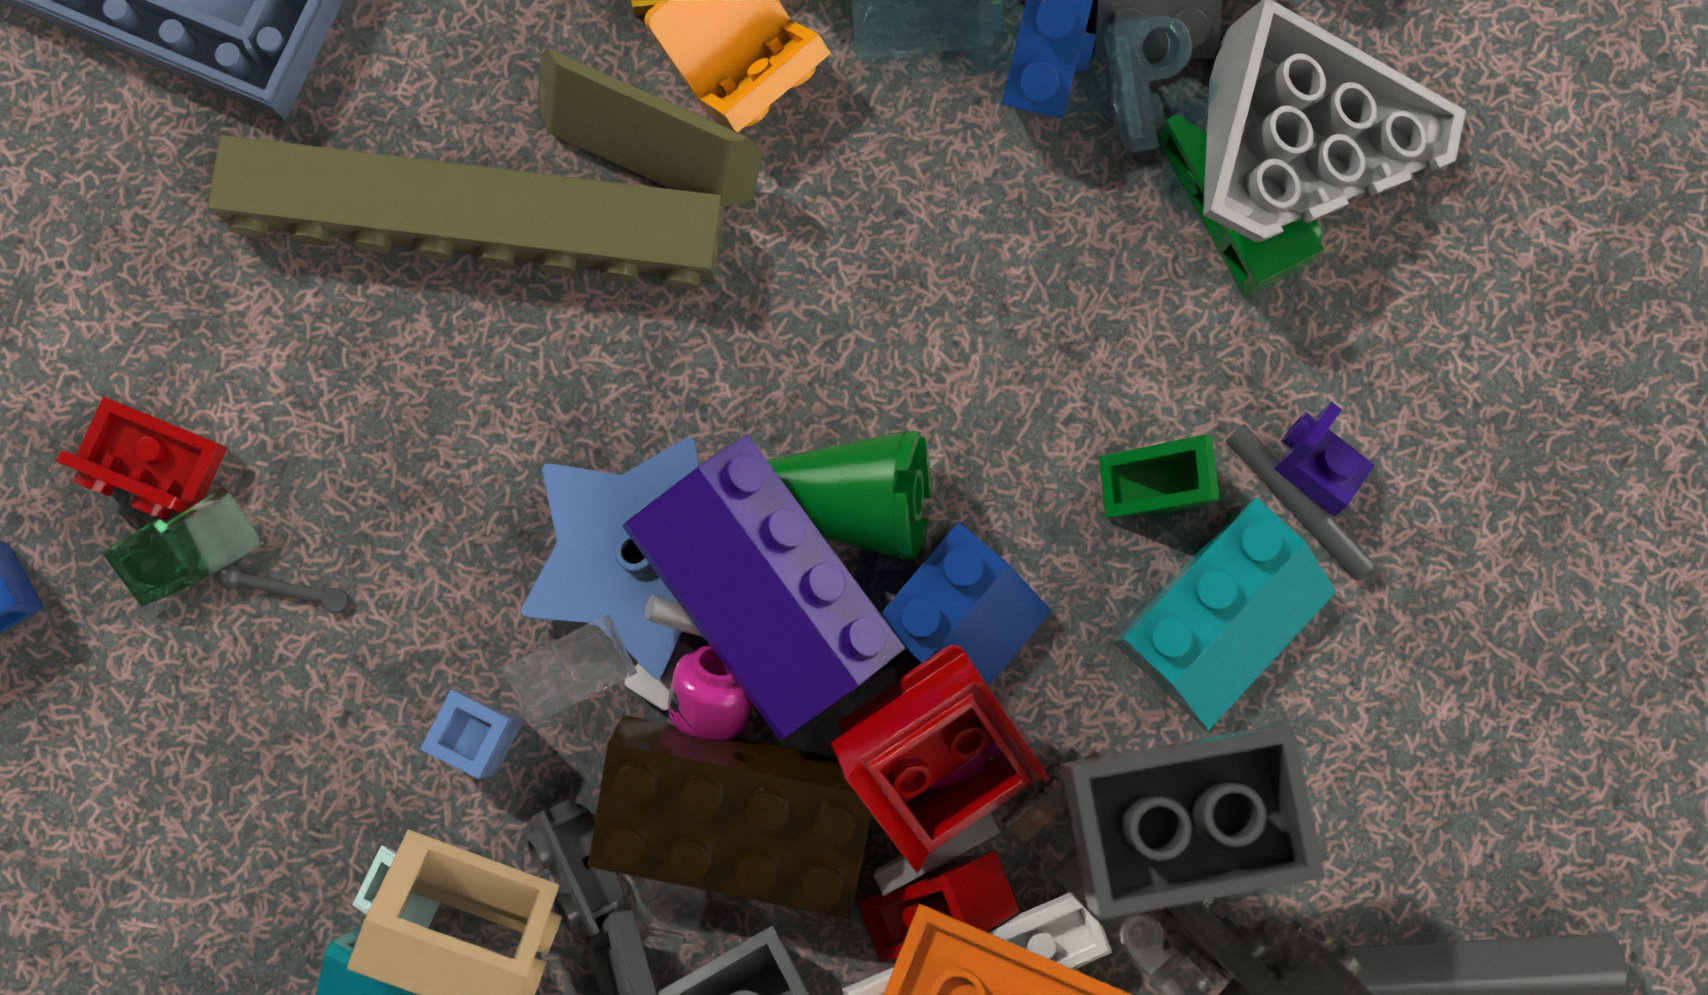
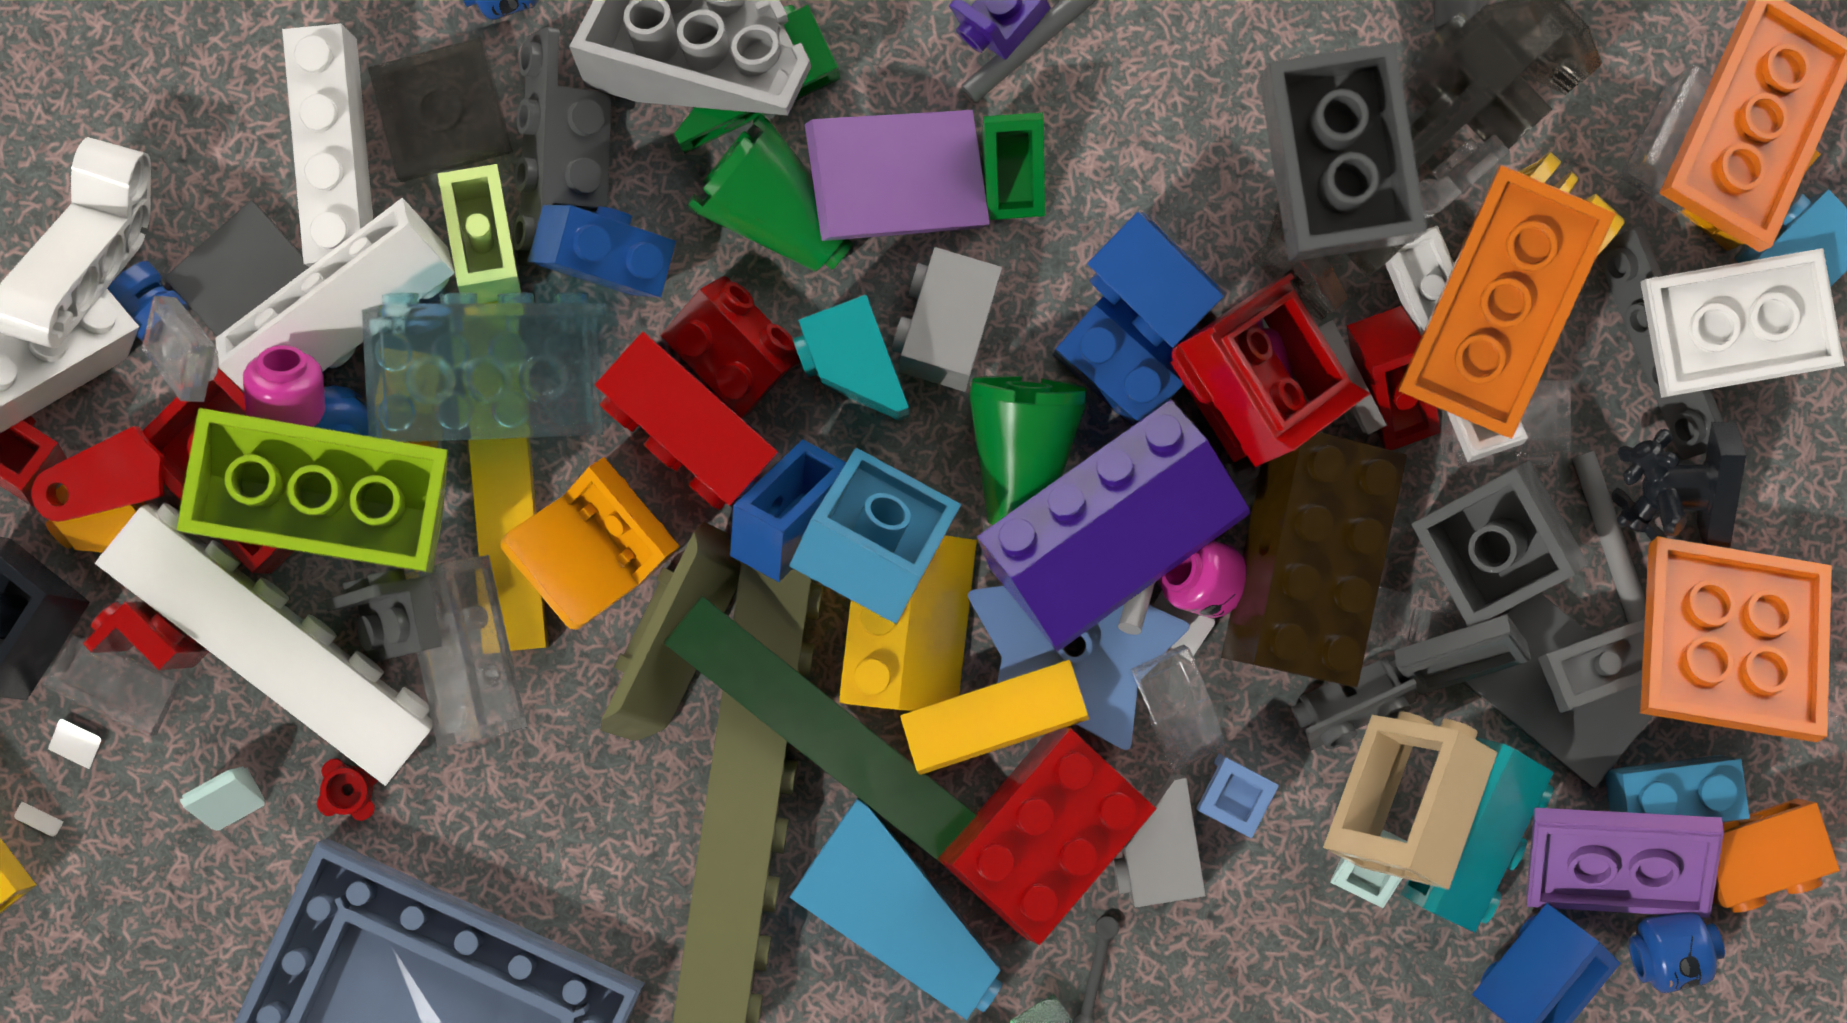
camera: 85 degrees left, 5 degrees up
(349, 372) = (892, 909): none -> dark azure slope
(411, 654) = (1163, 855): none -> light grey slope
(425, 524) = (1047, 834): none -> red brick
(504, 331) = (818, 727): none -> dark green tile
(554, 465) = (994, 717): none -> yellow tile
(660, 373) = (923, 653): none -> yellow slope
(746, 321) = (874, 535): none -> dark azure slope
(775, 241) = (779, 508): none -> blue brick
(866, 134) = (685, 423): none -> red brick
(945, 305) = (851, 356): none -> teal slope
(955, 188) = (731, 344): none -> red bracket
(989, 409) = (948, 318): none -> light grey brick
(1038, 631) = (1154, 280): none -> blue slope
(1111, 220) = (769, 199): none -> green cone
(1136, 108) = (635, 173): clear light blue plate -> none
(1143, 350) = (896, 174): none -> medium lavender tile
(1228, 612) = (1136, 110): teal slope -> none

